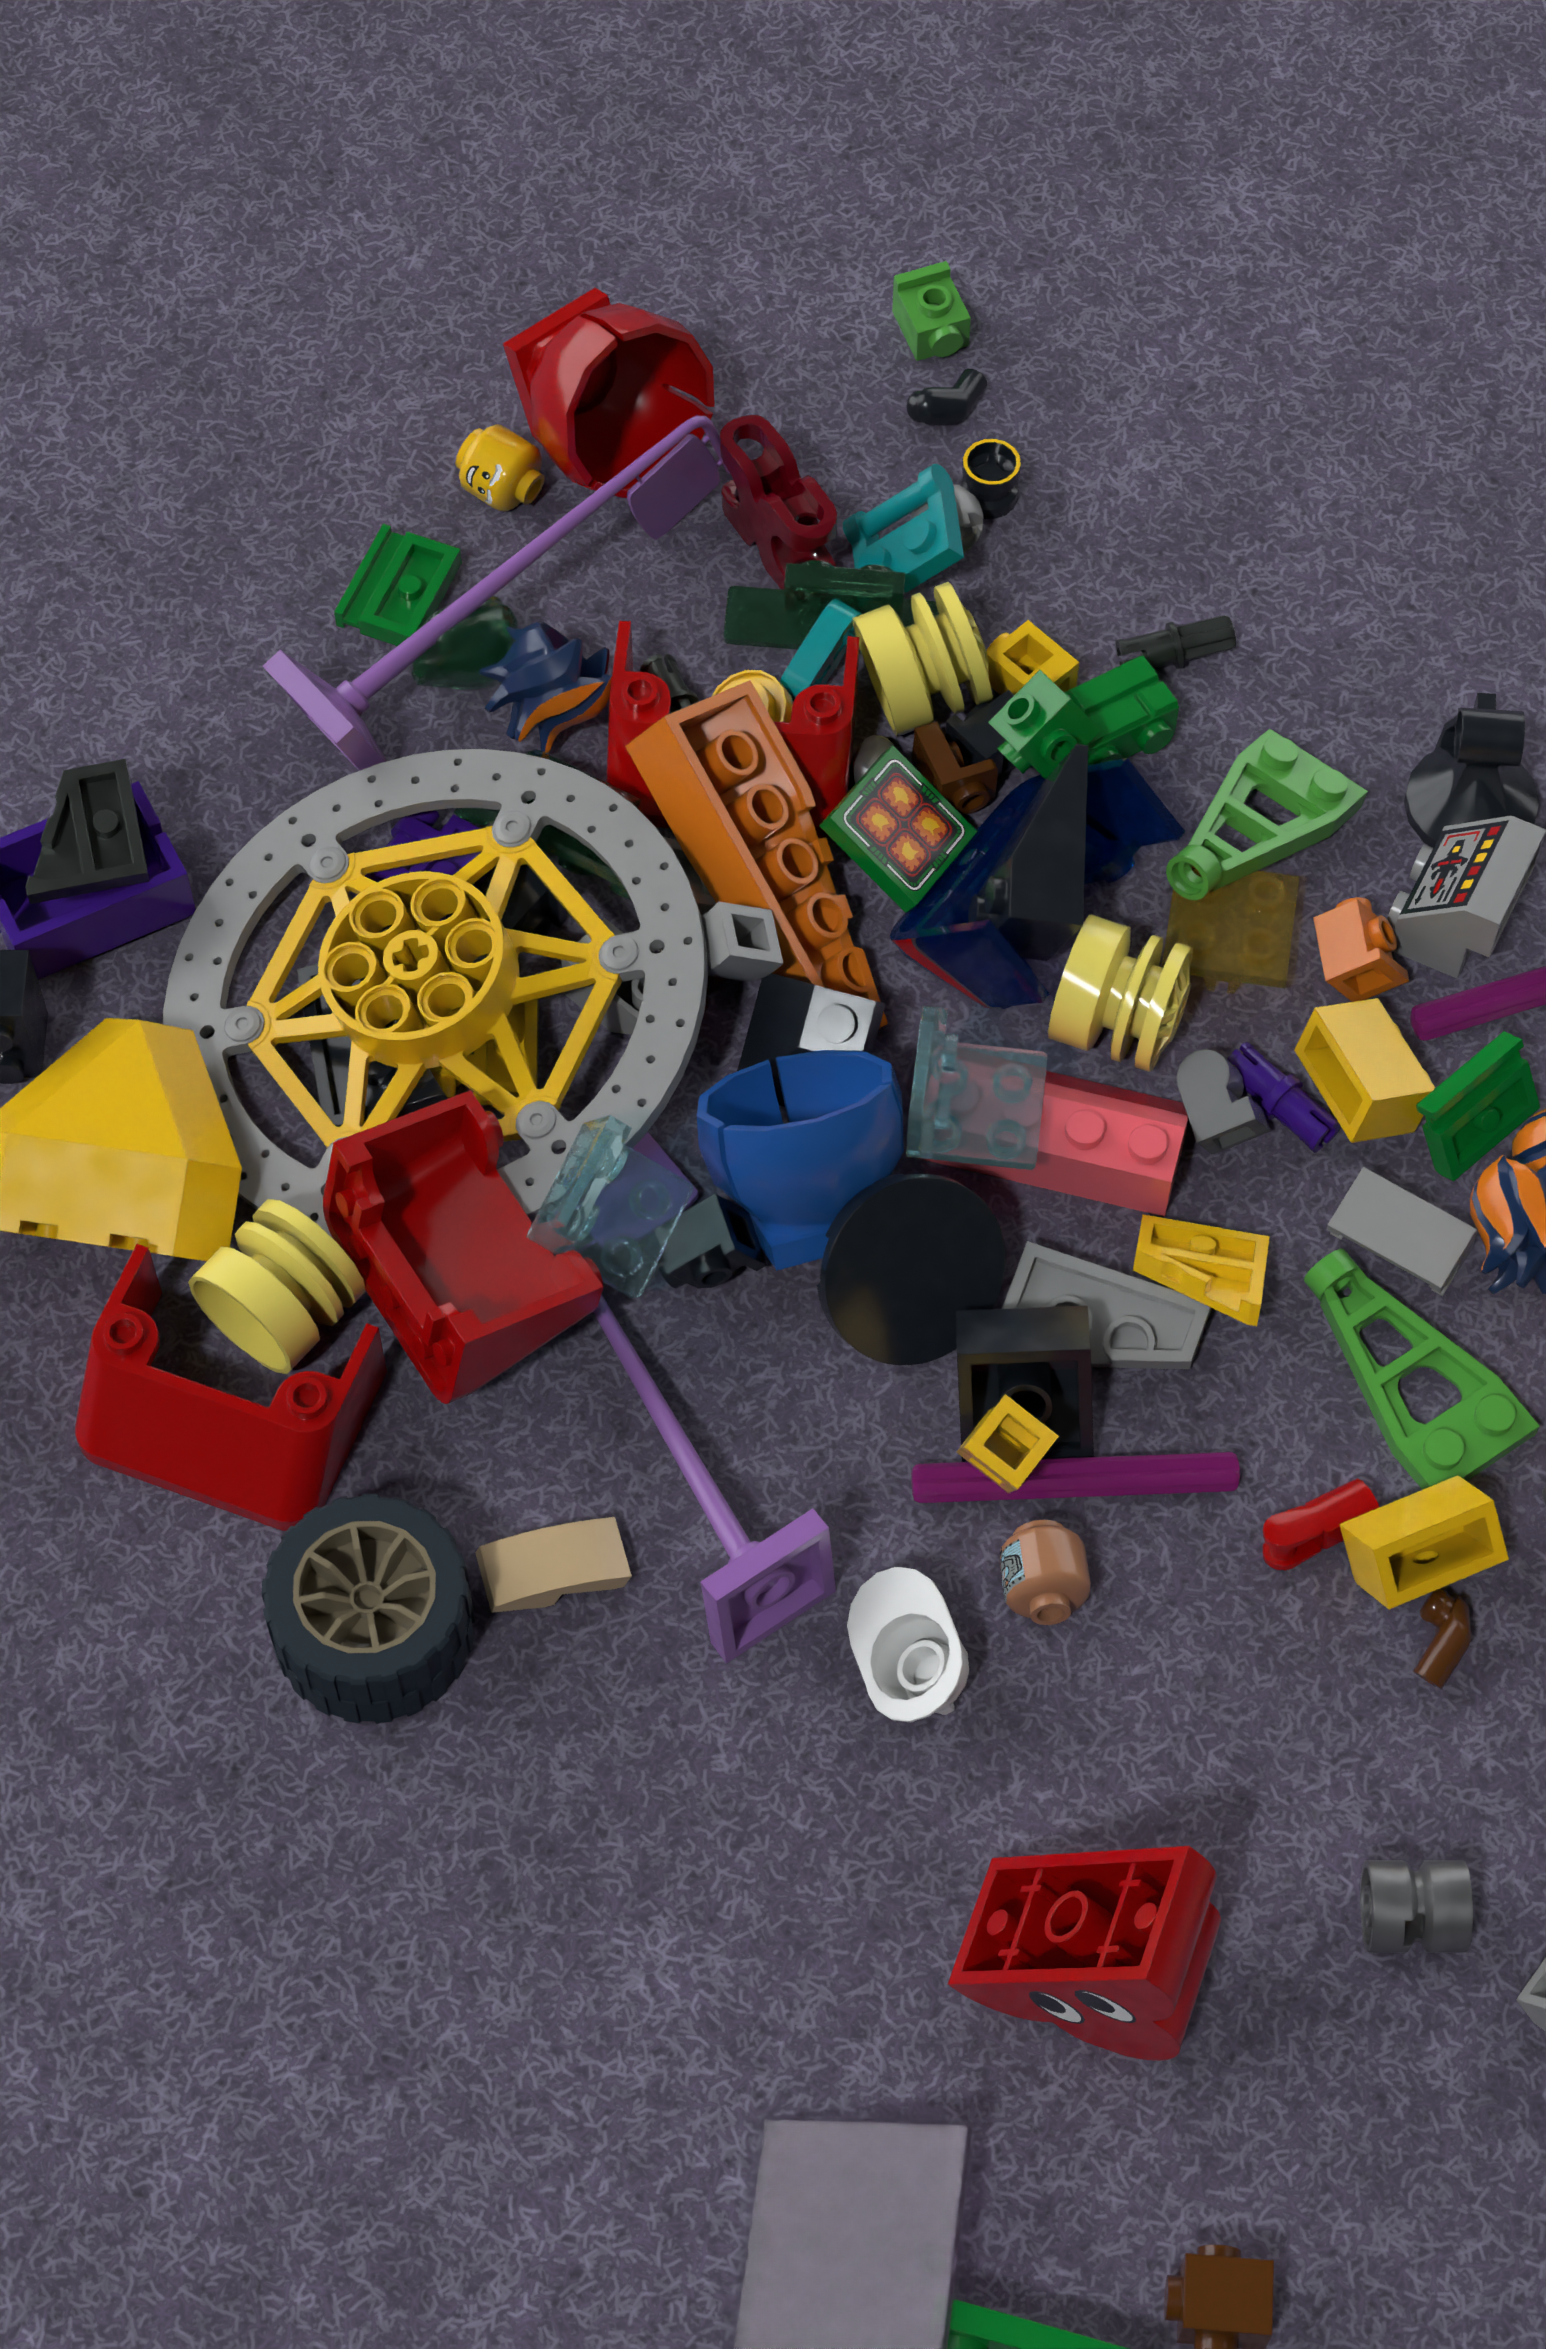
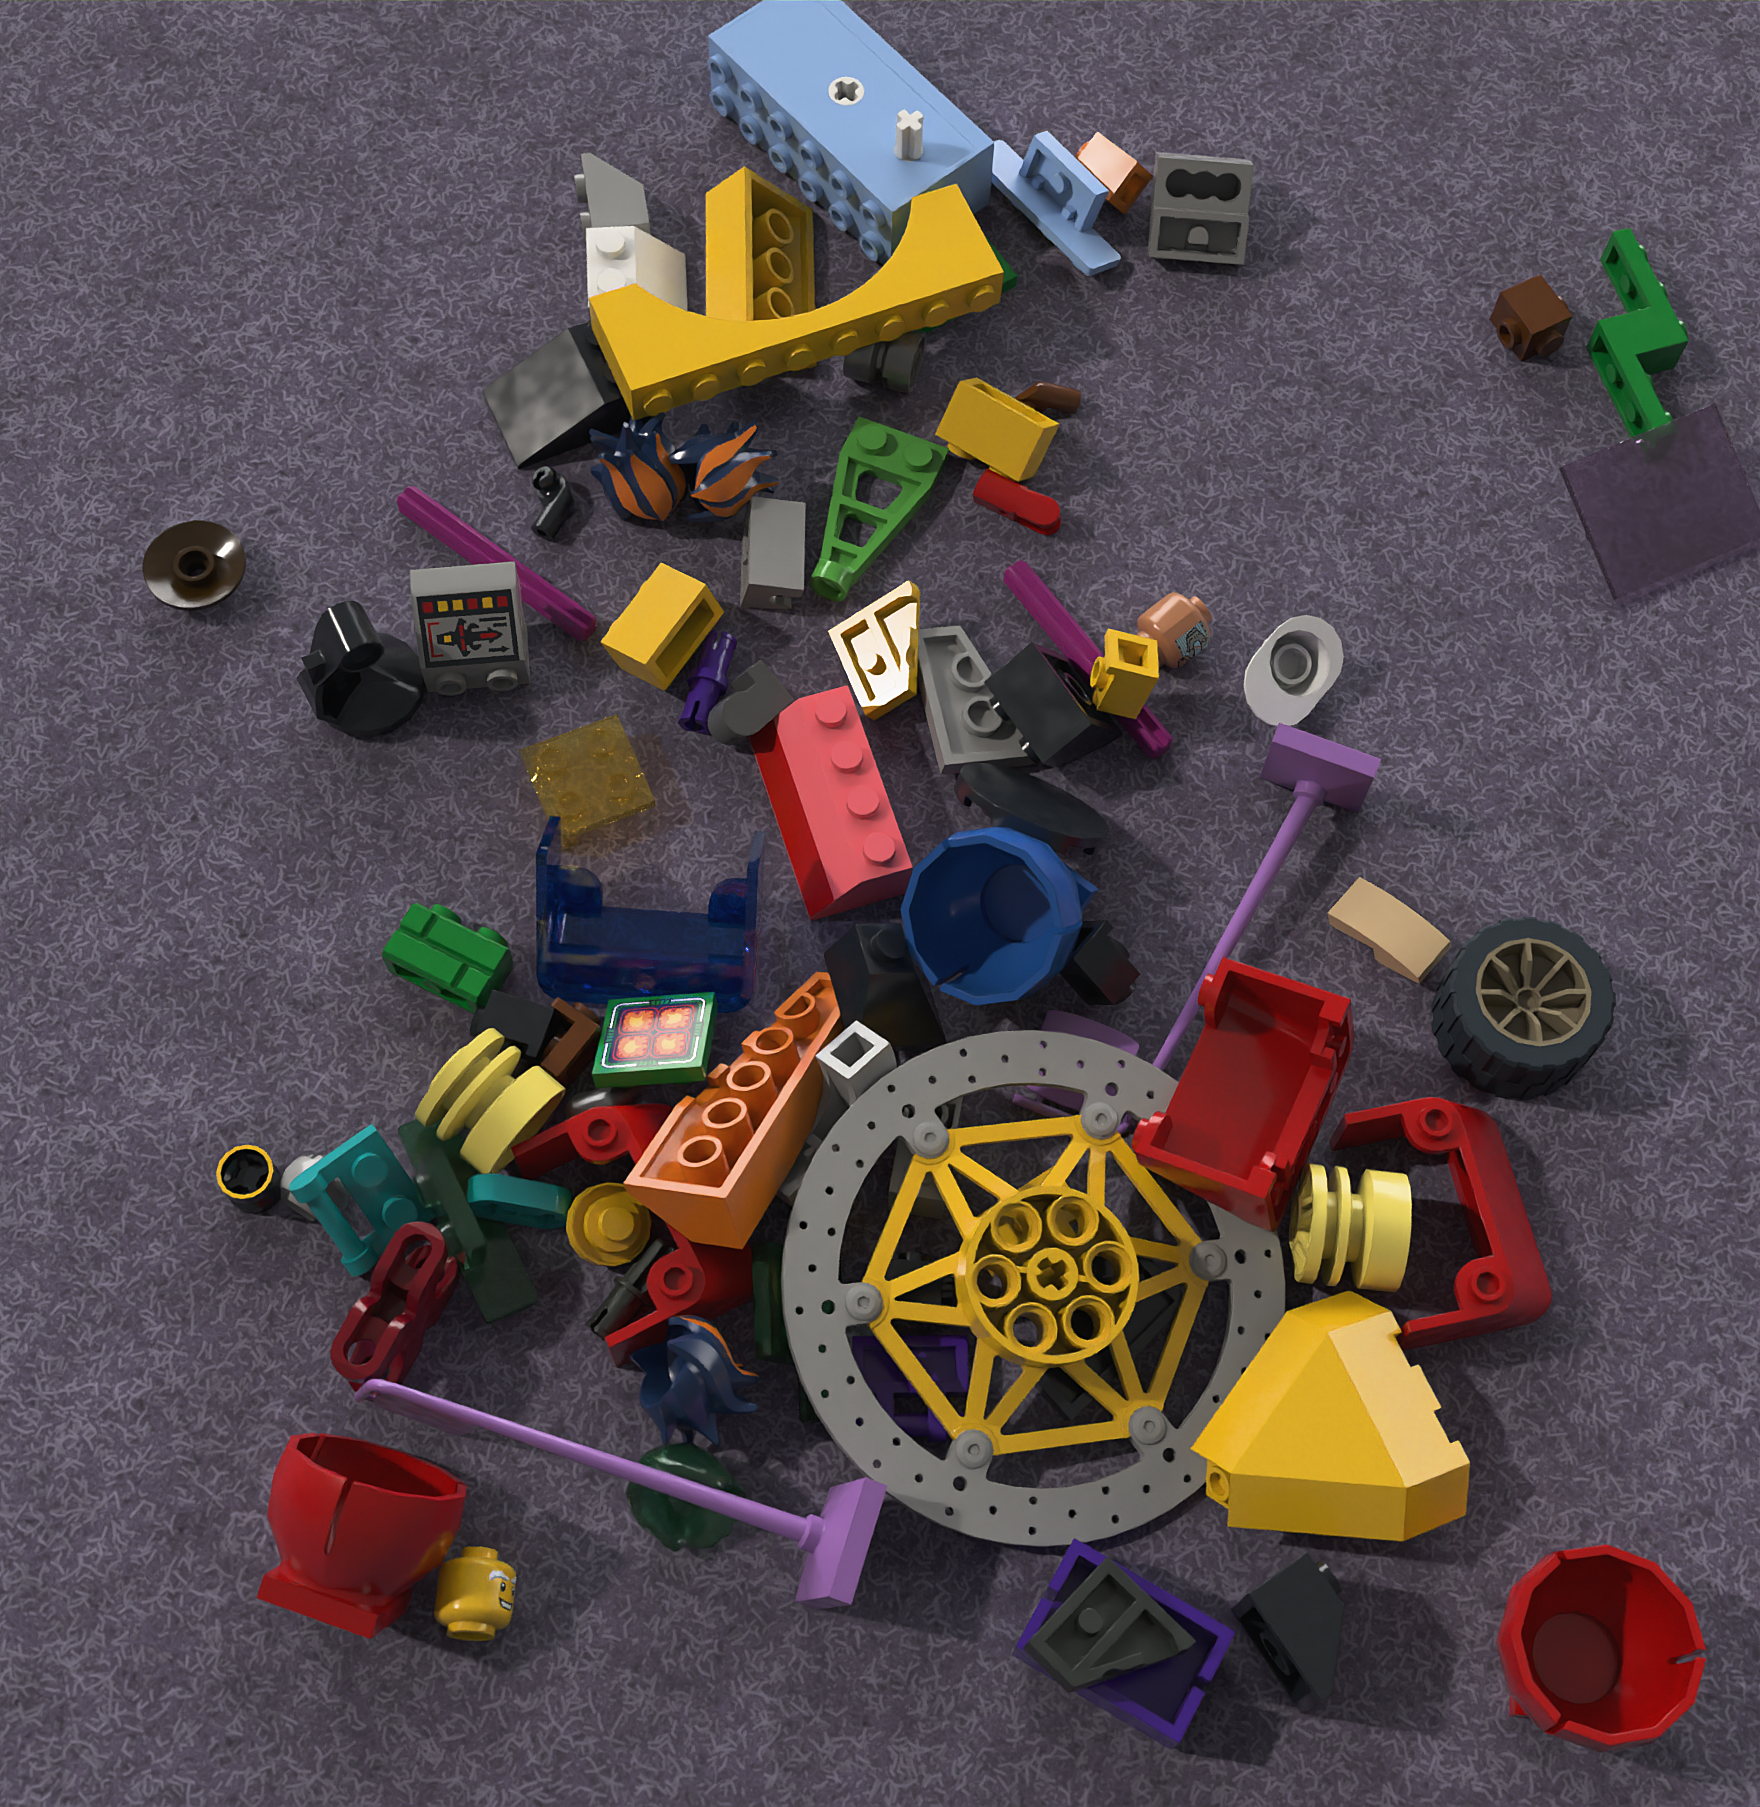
camera: 125 degrees left, 5 degrees up
(397, 585) = (649, 1604): green plate -> none
(611, 1206) = (1147, 1015): clear light blue bracket -> none
(930, 311) = (89, 1352): bright green brick -> none
(947, 404) = (178, 1266): black arm -> none
(974, 1099) = (885, 821): clear light blue bracket -> none
(1024, 652) = (433, 1021): yellow brick -> none
(1039, 877) = (644, 895): black slope -> none
(1041, 726) = (502, 950): green brick -> none
(1094, 1944) = (1404, 455): red brick -> none
(1120, 993) = (707, 800): light yellow wheel -> none
(1181, 642) = (342, 954): pearl dark grey axle -> none
(1288, 776) = (425, 793): bright green plate -> none
(1357, 950) = (558, 682): orange brick -> none
(1416, 1906) = (1233, 330): flat silver wheel -> none
(1478, 1106) = (624, 546): green plate -> none

